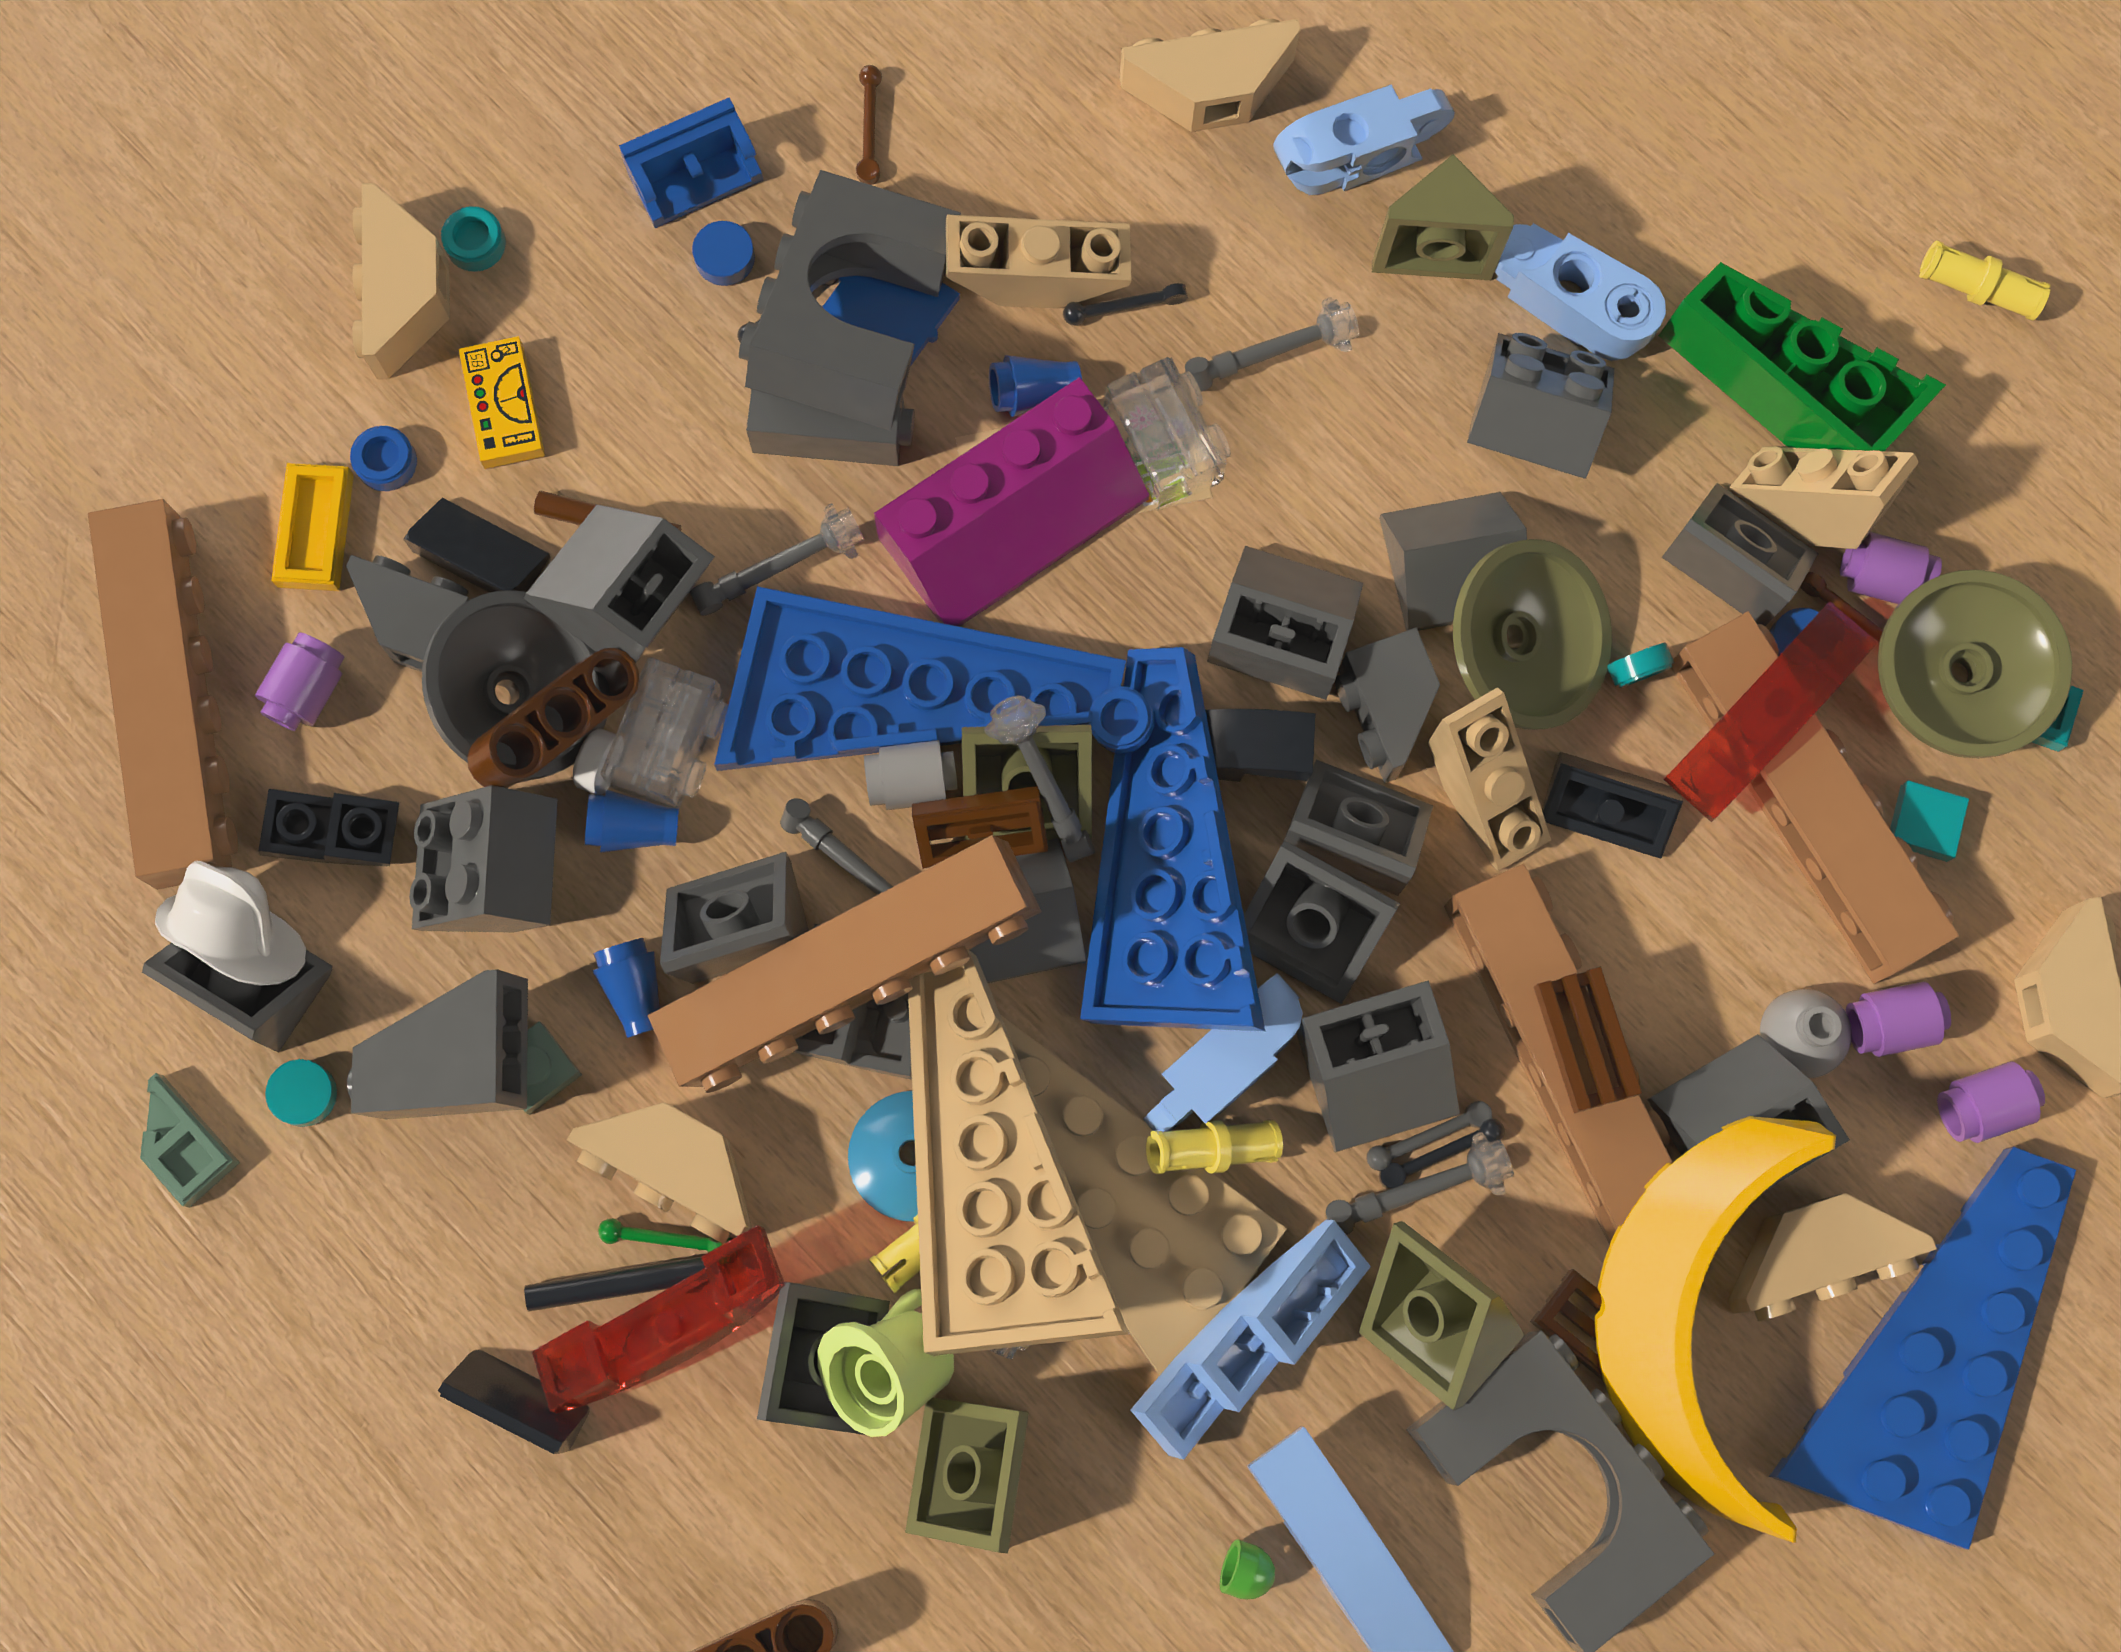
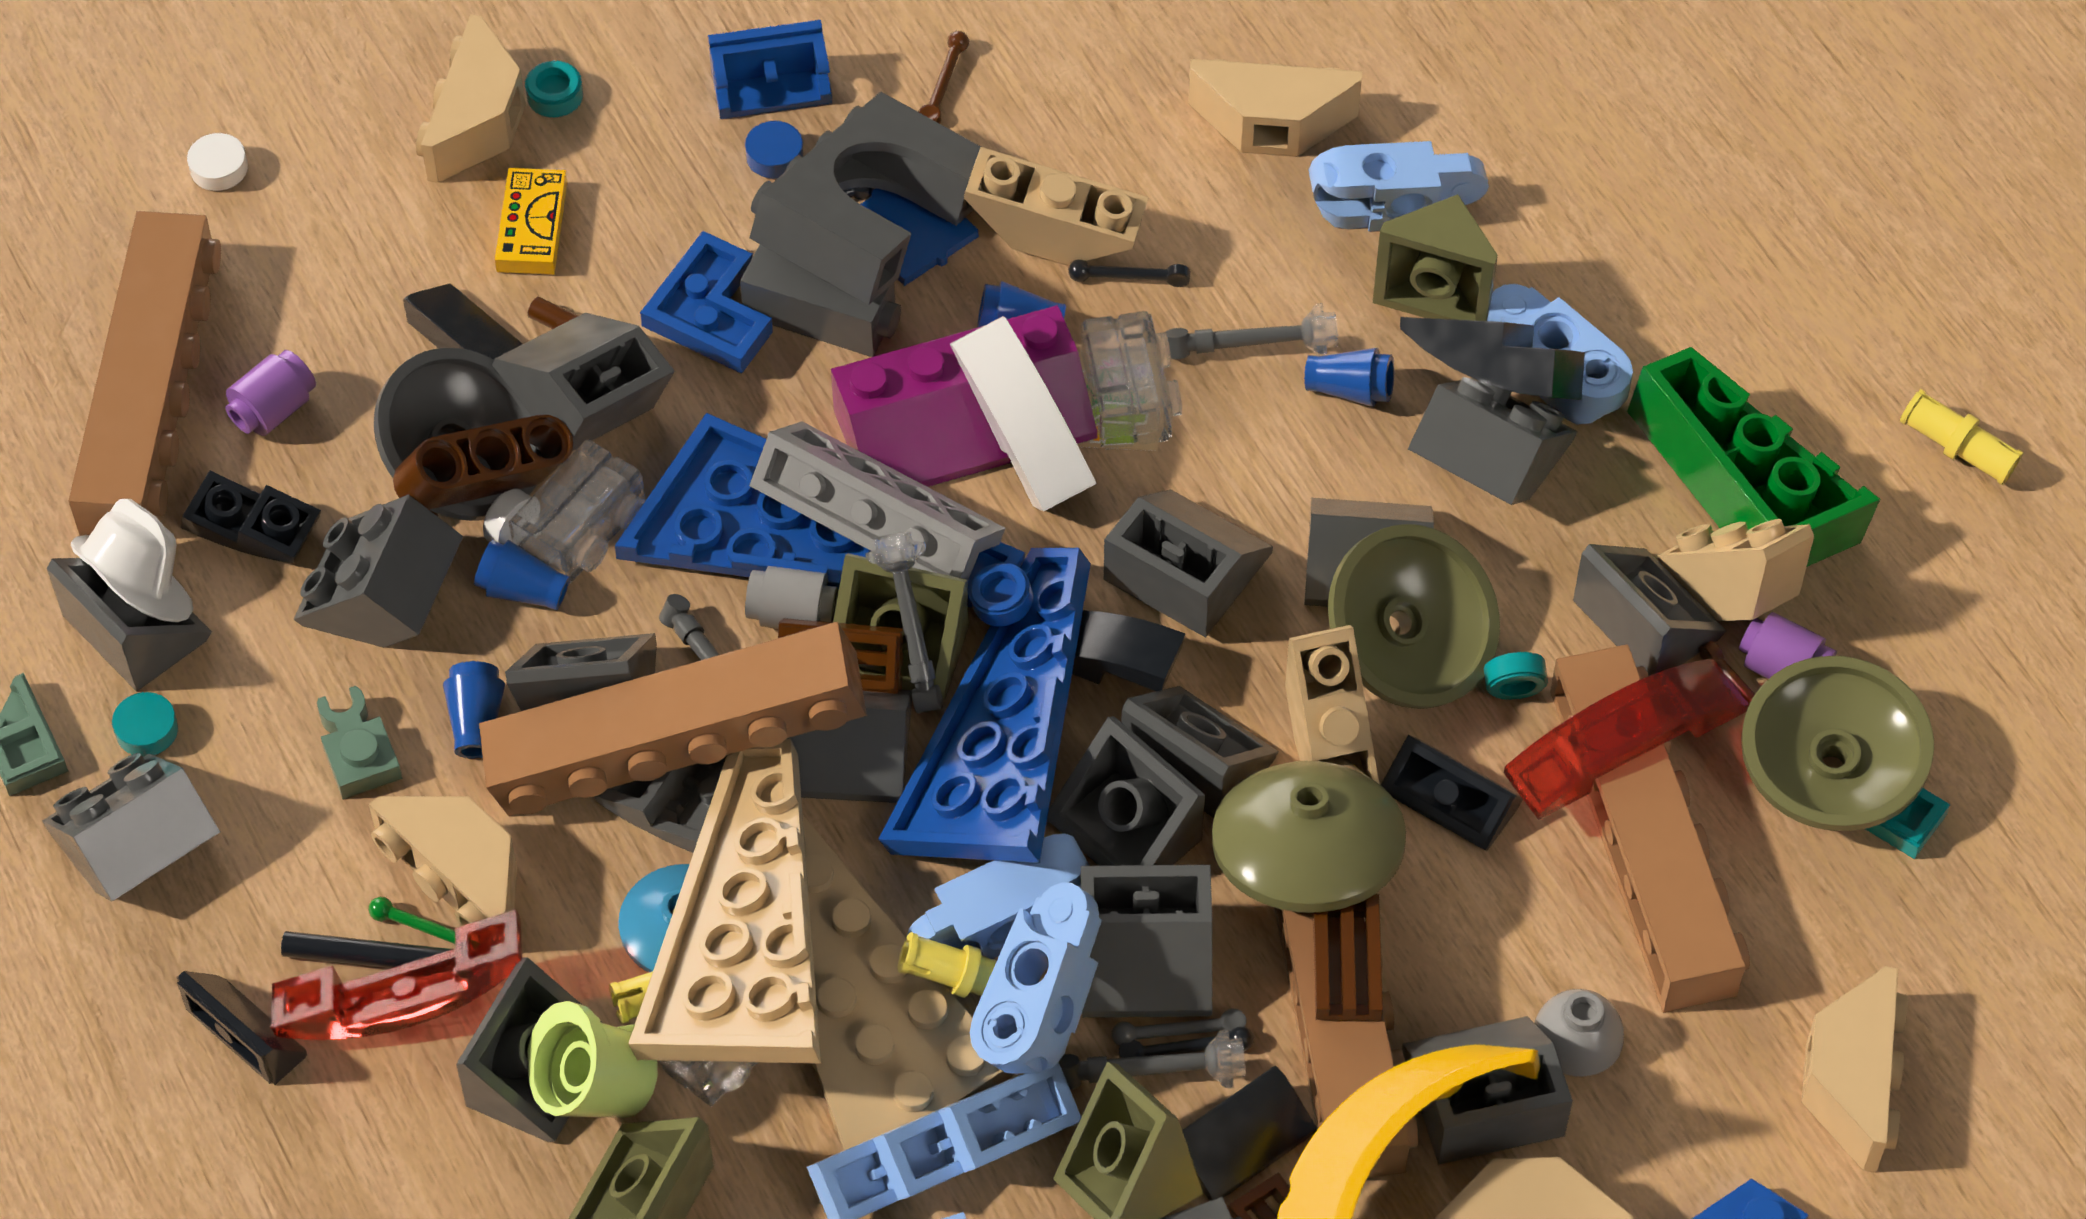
camera: 20 degrees right, 20 degrees down
(150, 417) = (217, 161): none -> white tile
(312, 527) = (326, 280): yellow tile -> none
(326, 1219) = (130, 824): none -> slope
(383, 458) = (409, 241): blue tile -> none
(403, 608) = (377, 349): dark grey slope -> none
(449, 1055) = (288, 713): dark grey slope -> none
(703, 464) = (698, 309): none -> blue plate
(837, 532) = (796, 391): dark grey piece -> none
(962, 658) = (869, 499): none -> light grey fence
(1083, 512) = (1022, 414): none -> white slope
(1307, 1100) = (1028, 1022): none -> light blue piece
(1383, 368) = (1354, 375): none -> blue cone
(1391, 693) = (1259, 634): dark grey slope -> none
(1507, 953) = (1309, 836): none -> olive dish
(1529, 1237) = (1247, 1133): none -> black slope
(1530, 317) = (1500, 355): none -> black slope
(1898, 1019) = (1670, 1036): medium lavender brick -> none
(1929, 820) = (1760, 880): teal tile -> none
(1991, 1103) = (1739, 1131): medium lavender brick -> none

